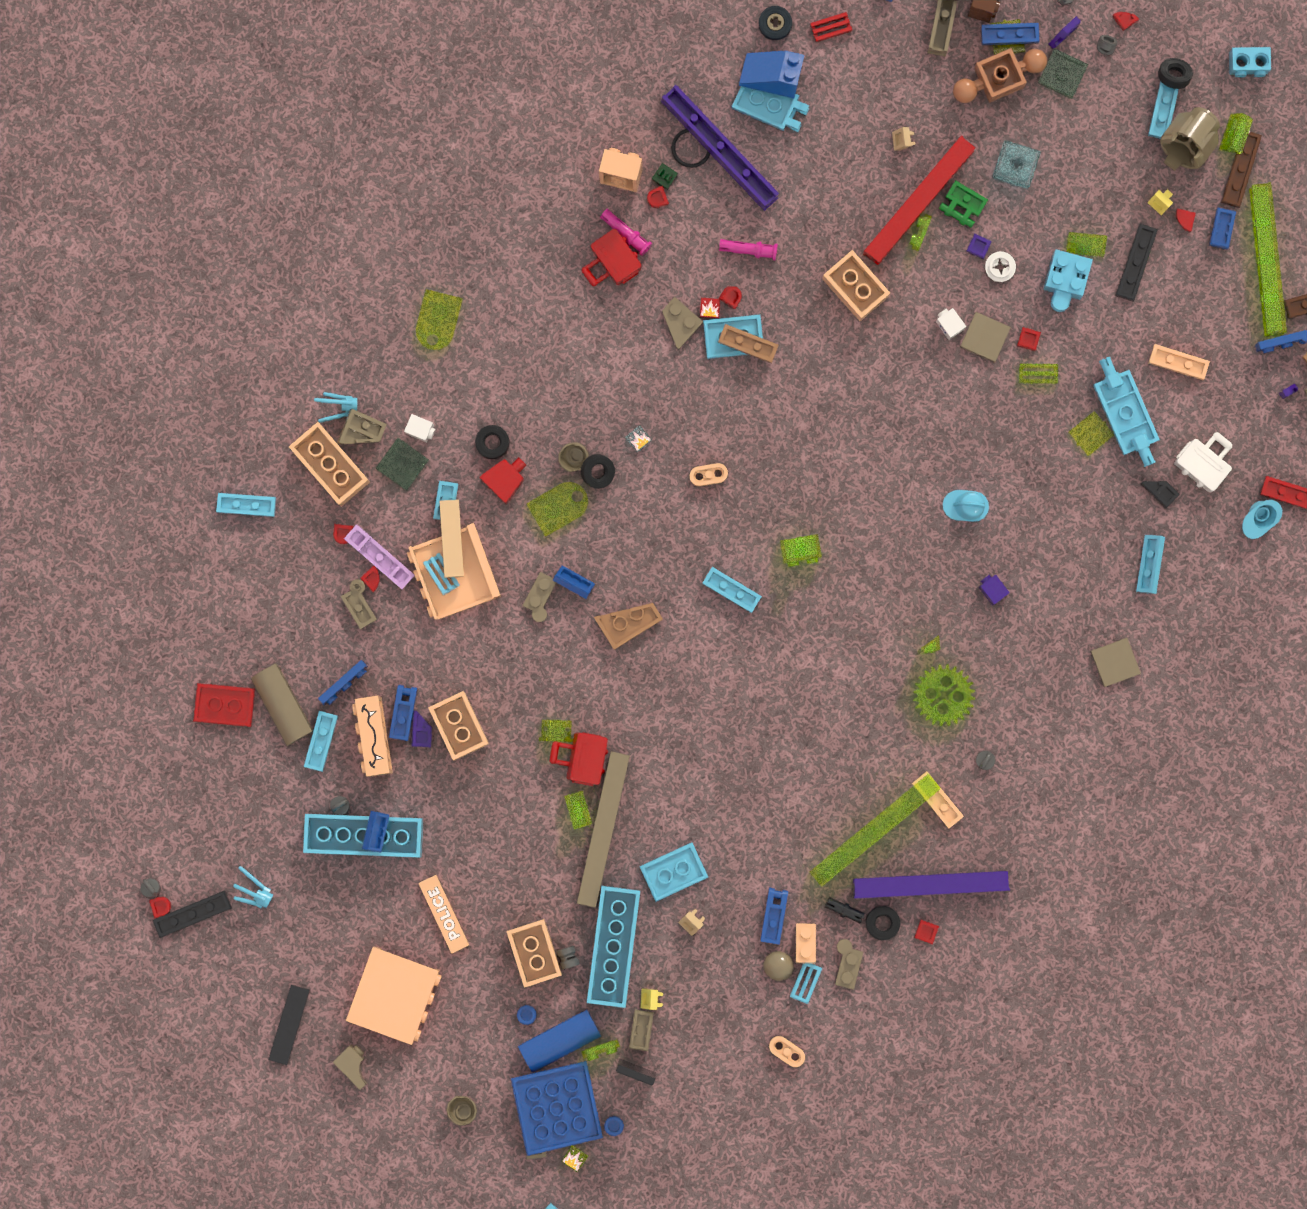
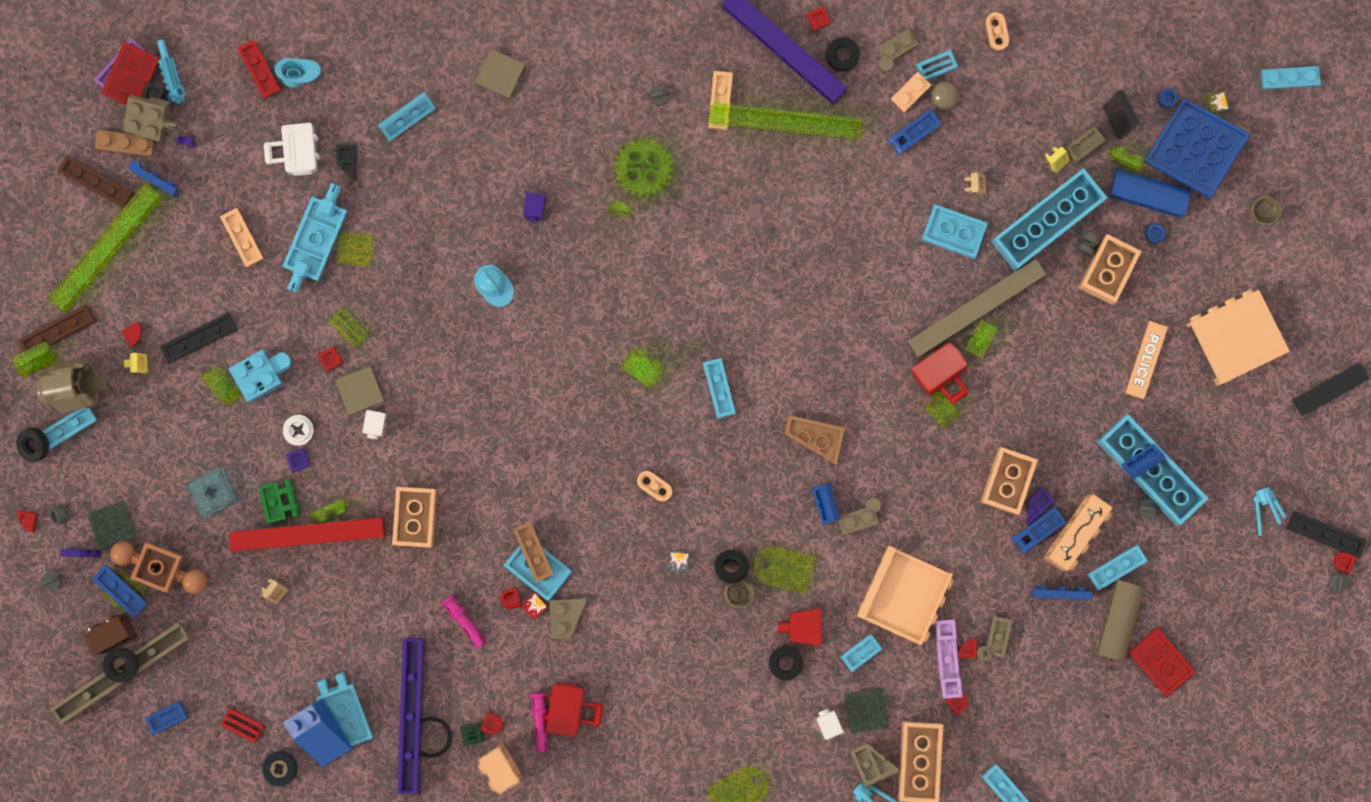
camera: 140 degrees left, 0 degrees up
(350, 1064) = (1315, 318): dark tan arch -> none
(433, 561) = (909, 596): medium azure tile -> none
(451, 538) = (884, 620): tan tile -> none
(844, 910) = (861, 88): black pin -> none
(1222, 228) = (113, 301): blue plate -> none

